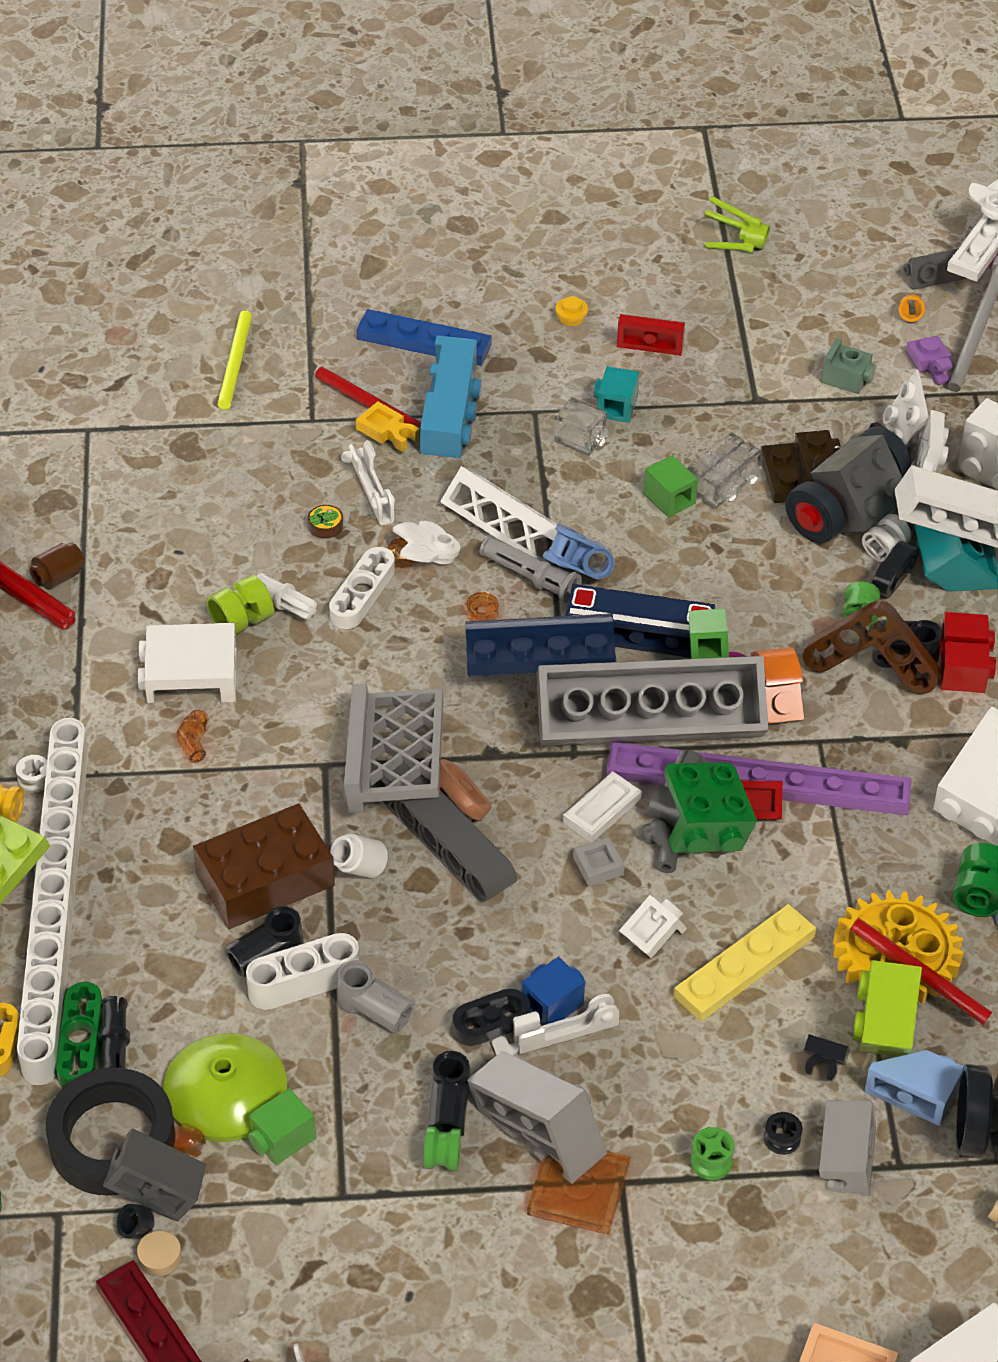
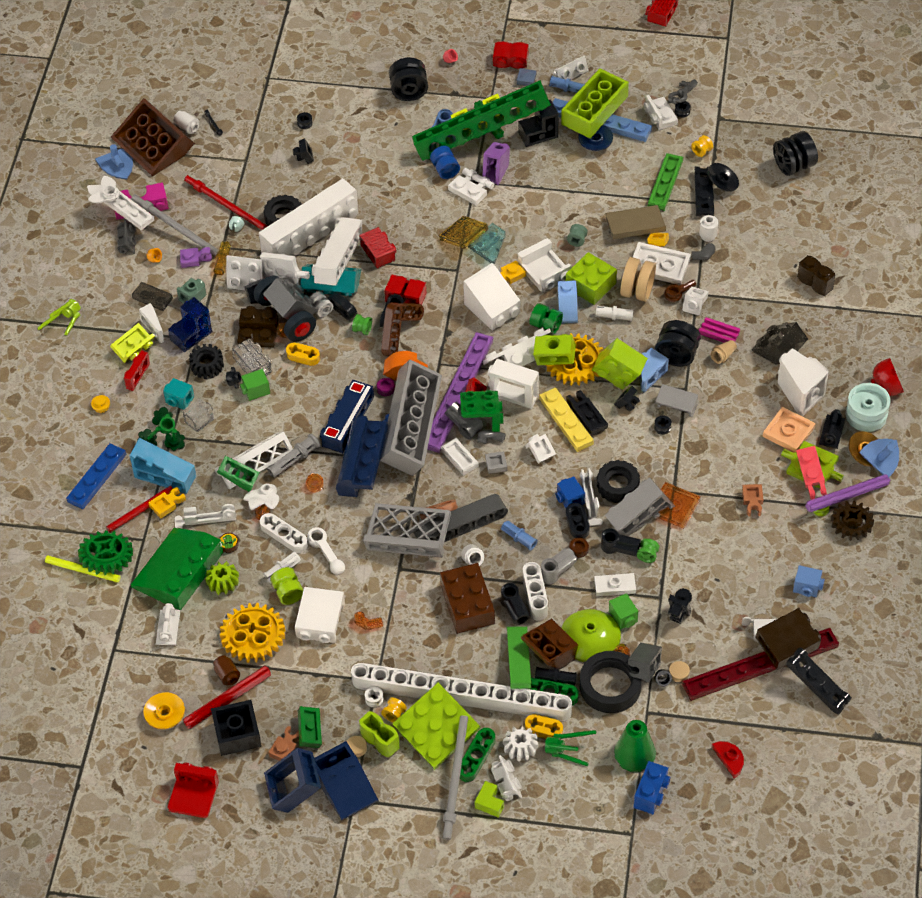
camera: 75 degrees left, 5 degrees up
(111, 586) = (252, 632): none -> yellow gear
(137, 965) = (518, 658): none -> bright green tile
(149, 477) = (168, 625): none -> white hinge
(167, 1006) = (551, 644): none -> reddish brown slope
(244, 523) = (222, 578): none -> lime gear
(256, 470) = (178, 566): none -> green slope
(263, 372) = (106, 557): none -> green gear
(301, 1216) = (680, 605): none -> black hips
(311, 672) = (336, 566): none -> white piece
(353, 1108) = (615, 584): none -> white plate
(431, 1033) = (579, 547): none -> reddish brown tile
(435, 928) = (519, 535): none -> medium blue axle
(460, 517) = (242, 483): none -> green slope
(517, 375) = (165, 425): none -> dark green plant
(573, 551) = (298, 429): medium blue piece -> none
(614, 1043) = (617, 468): none -> black tyre
(634, 1327) = (753, 497): none -> nougat plate
(678, 447) = (233, 378): none -> black plate
(707, 403) = (206, 353): none -> black tyre
(708, 318) = (132, 342): none -> neon yellow bracket
(708, 634) = (382, 382): bright green brick -> none
(709, 1143) = (668, 447): bright green wheel -> none
(761, 332) = (151, 322): none -> white slope
(767, 376) = (192, 327): none -> clear blue brick
(767, 539) = (302, 354): none -> yellow beam
(767, 992) = (587, 413): none -> black hinge
(786, 846) = (517, 375): none -> white window
(819, 322) = (148, 294): none -> clear smoke plate
(881, 858) = (519, 354): none -> white bracket
(889, 892) = (554, 349): none -> lime brick
(928, 976) = (593, 352): red bar -> none
(949, 390) = (220, 264): none -> clear yellow axle

